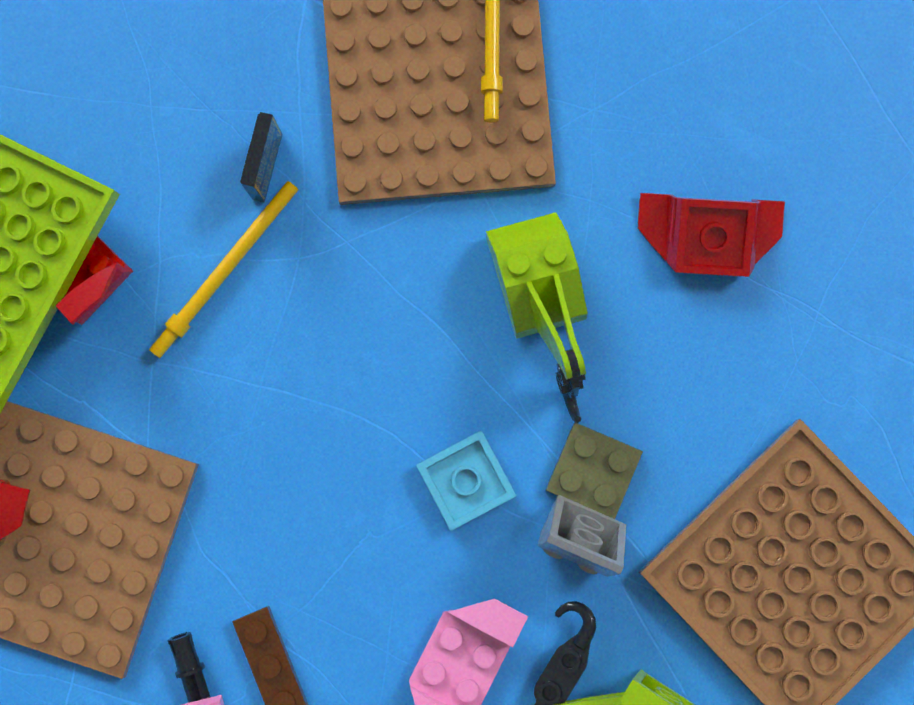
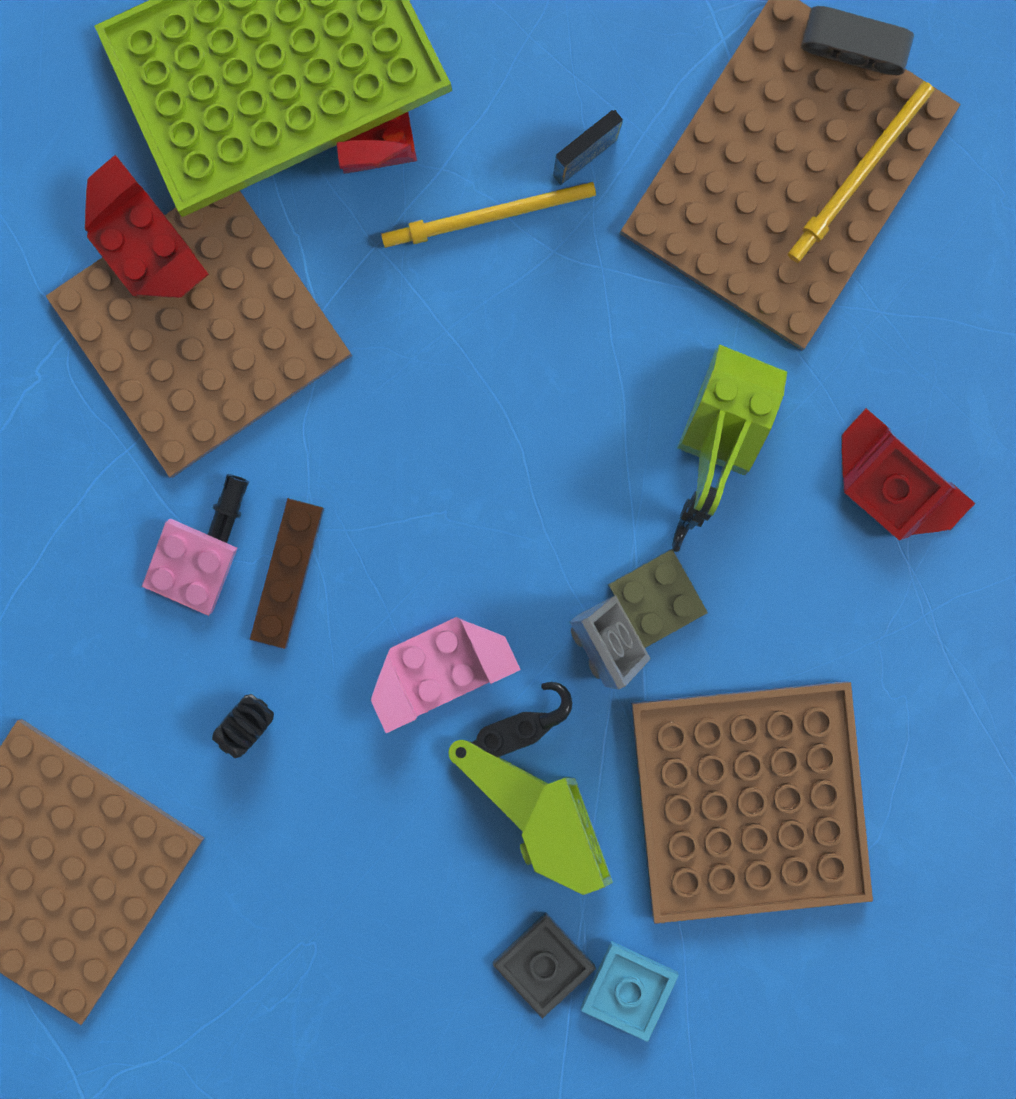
camera: 35 degrees right, 5 degrees up
(466, 480) = (552, 528): medium azure plate -> none

